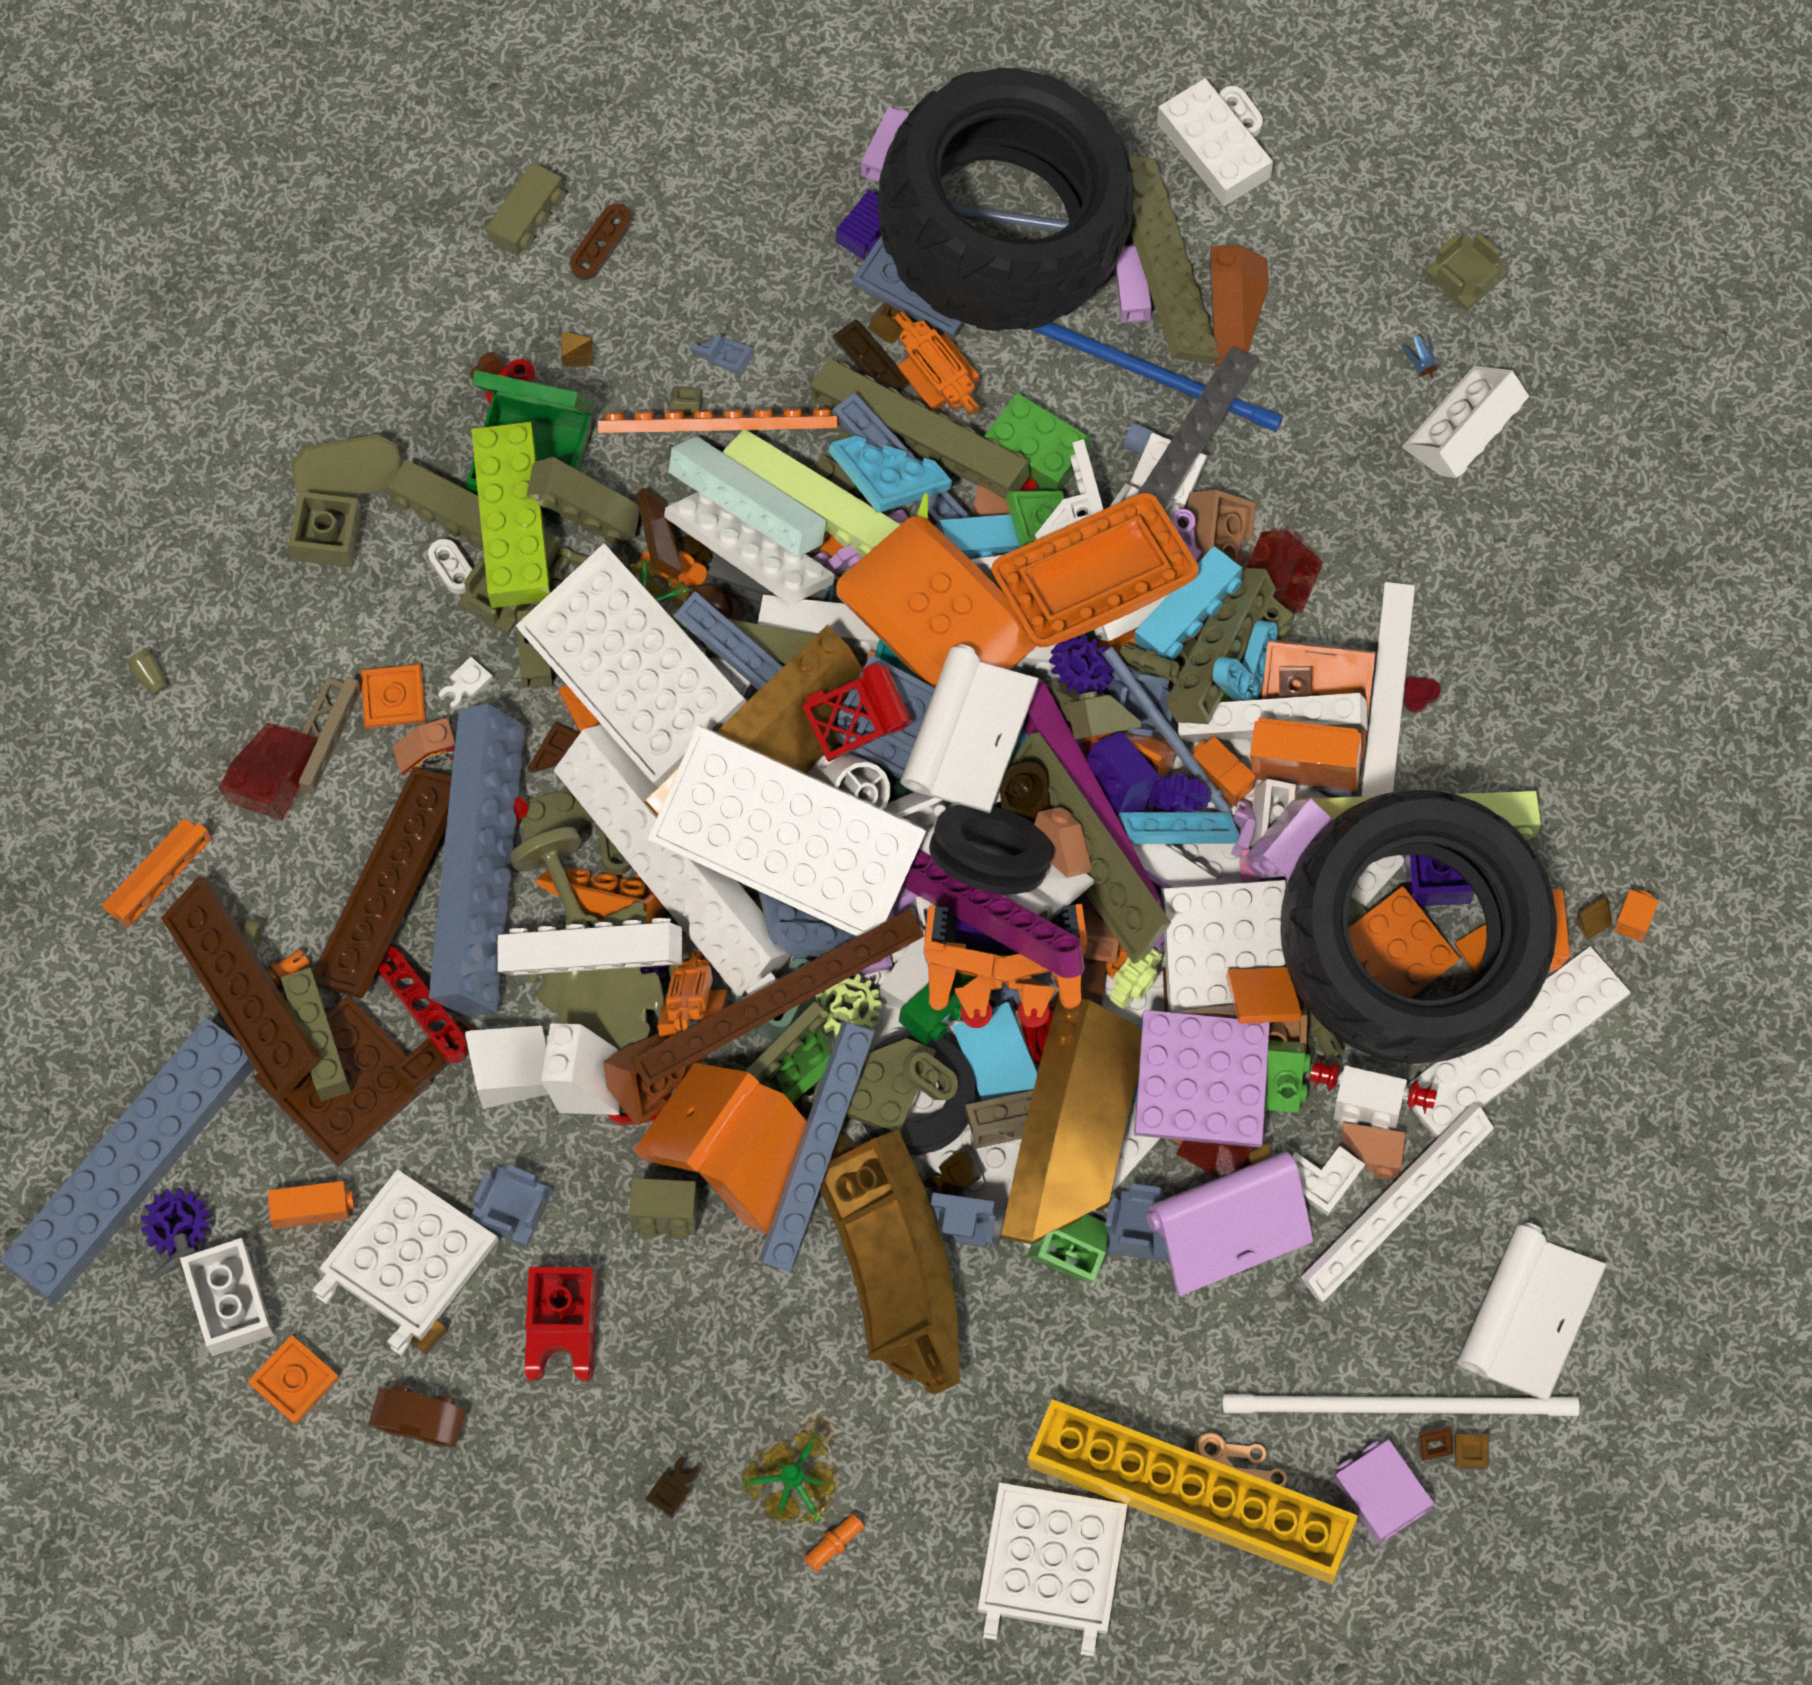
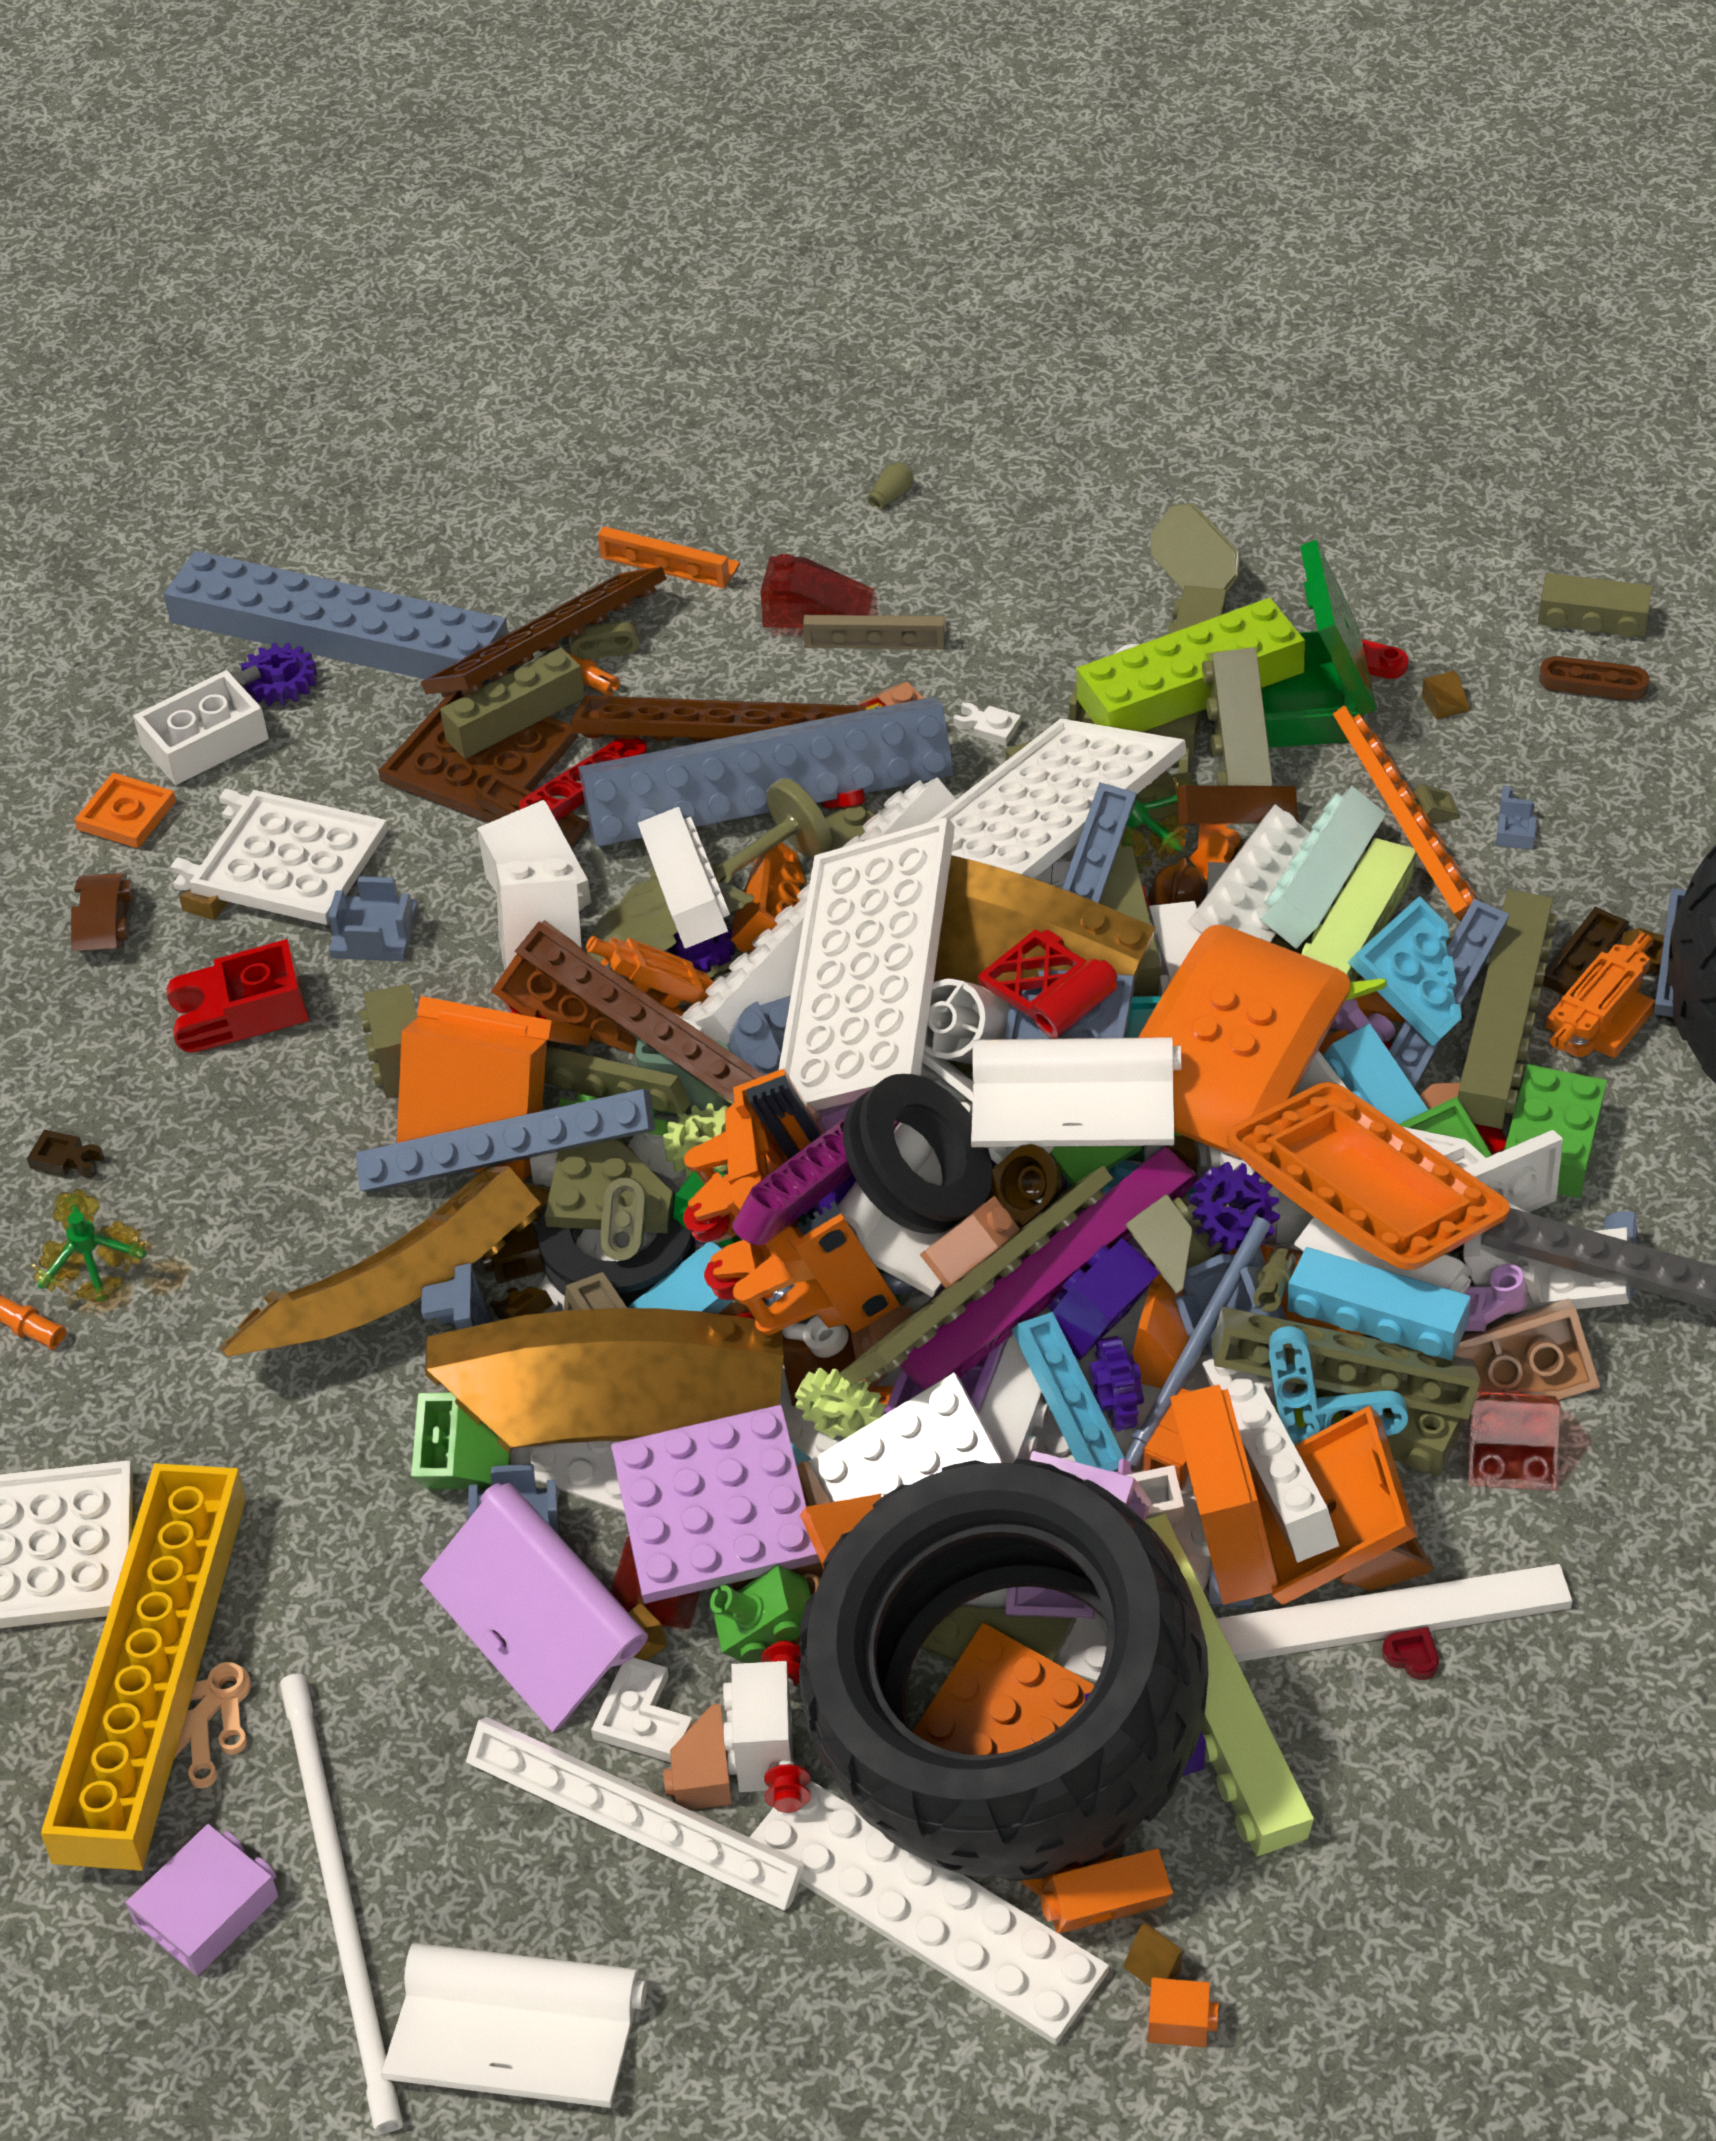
camera: 75 degrees right, 20 degrees down
(310, 1204) = (326, 764): orange brick -> none
(325, 529) = (1112, 557): olive brick -> none
(392, 696) = (948, 671): orange tile -> none
(488, 363) = (1379, 628): reddish brown tile -> none
(1289, 674) = (1327, 1458): reddish brown plate -> none
(1439, 1434) = (290, 1936): reddish brown slope -> none
(1471, 1451) = (287, 1999): pearl gold plate -> none

